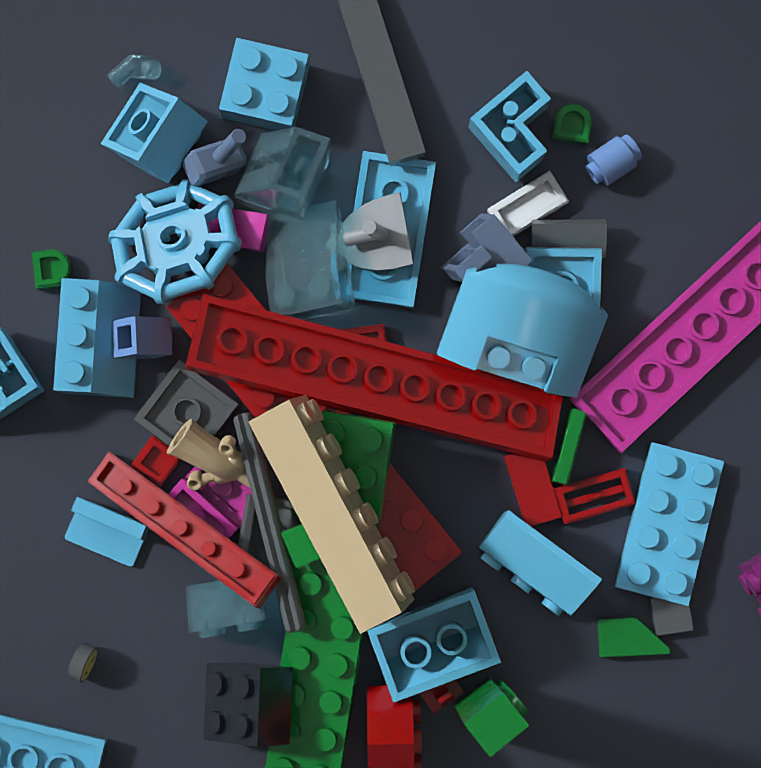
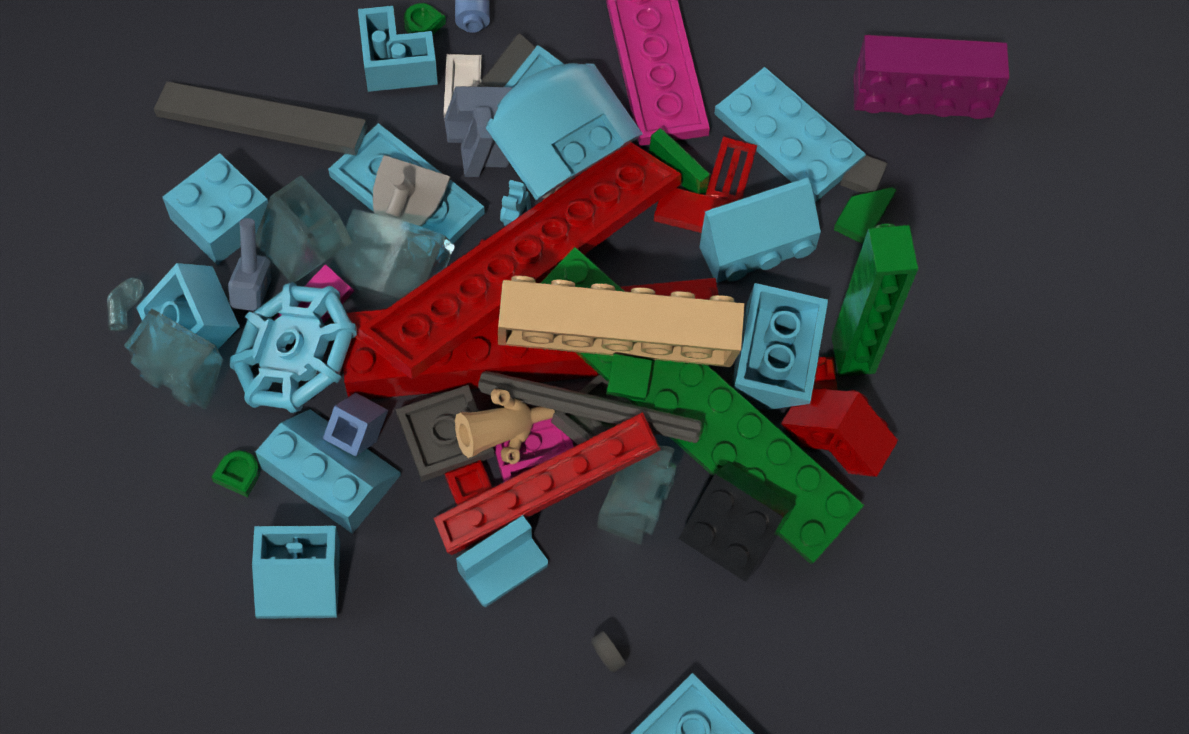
camera: 60 degrees left, 20 degrees down
(97, 155) = (175, 358): none -> clear light blue slope
(425, 336) = (516, 203): none -> medium azure plate

